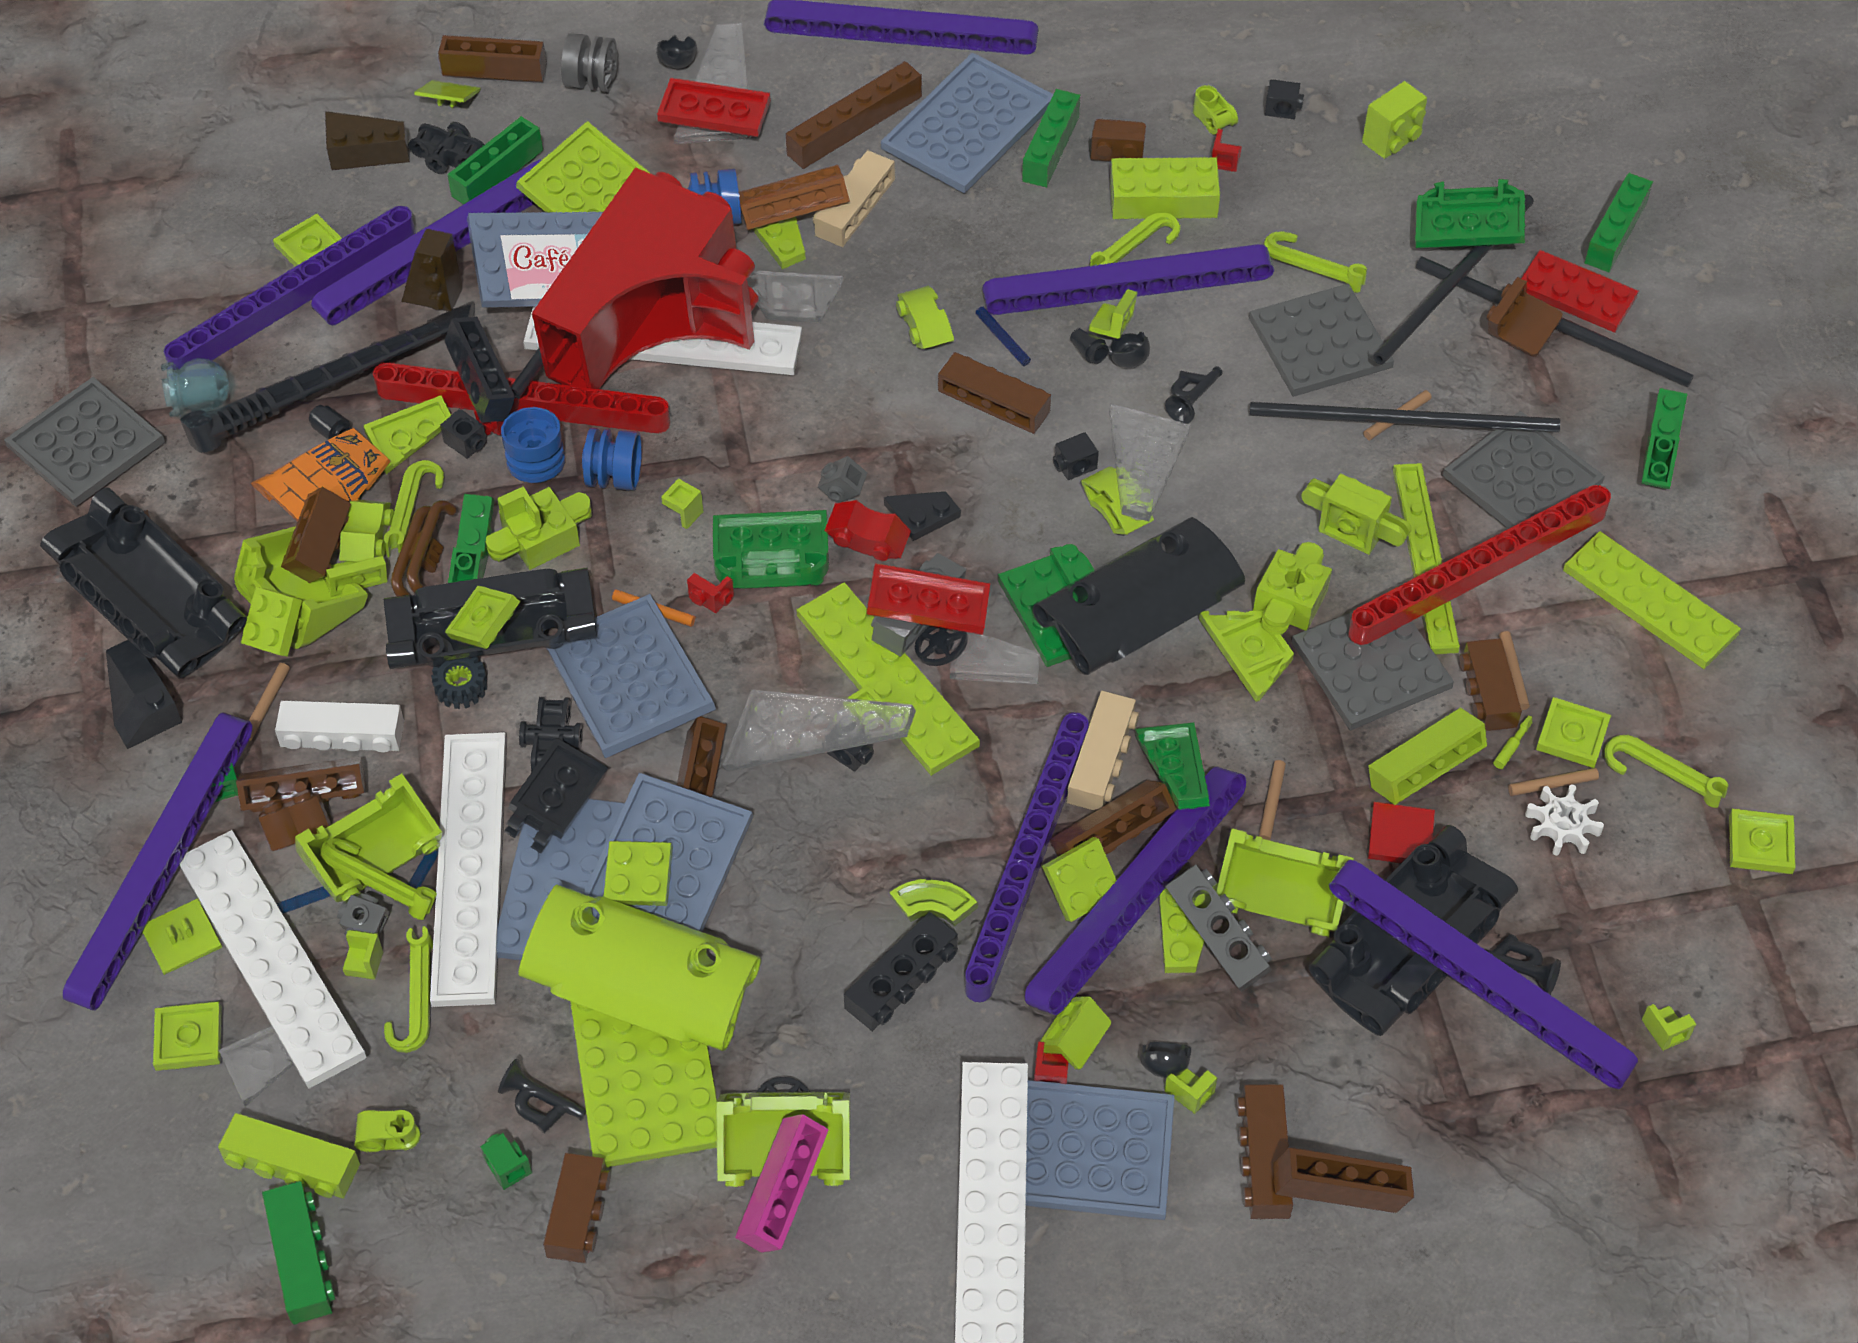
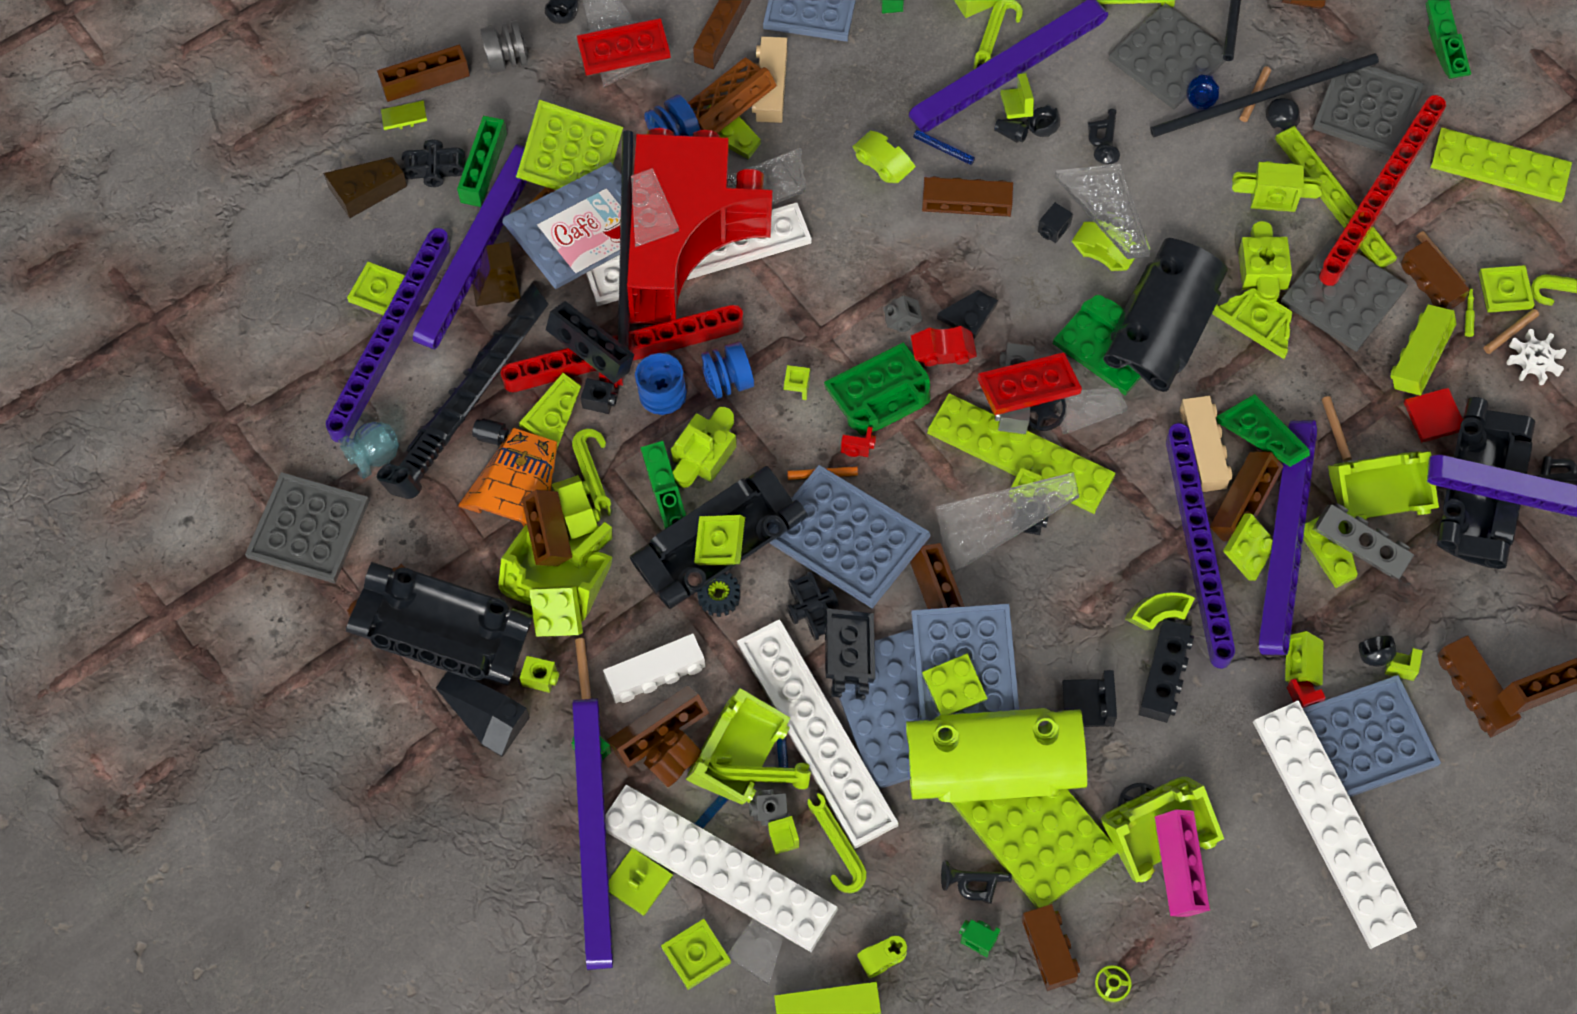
camera: 25 degrees left, 10 degrees up
(209, 672) = (532, 667): none -> lime brick
(420, 547) = (625, 502): reddish brown piece -> none
(601, 246) = (650, 209): none -> clear wing
(625, 1290) = (1112, 976): none -> lime piece
(794, 967) = (1094, 698): none -> black bracket
(1337, 387) = (1204, 92): none -> clear blue hair
(1416, 446) = (1283, 113): none -> black hair

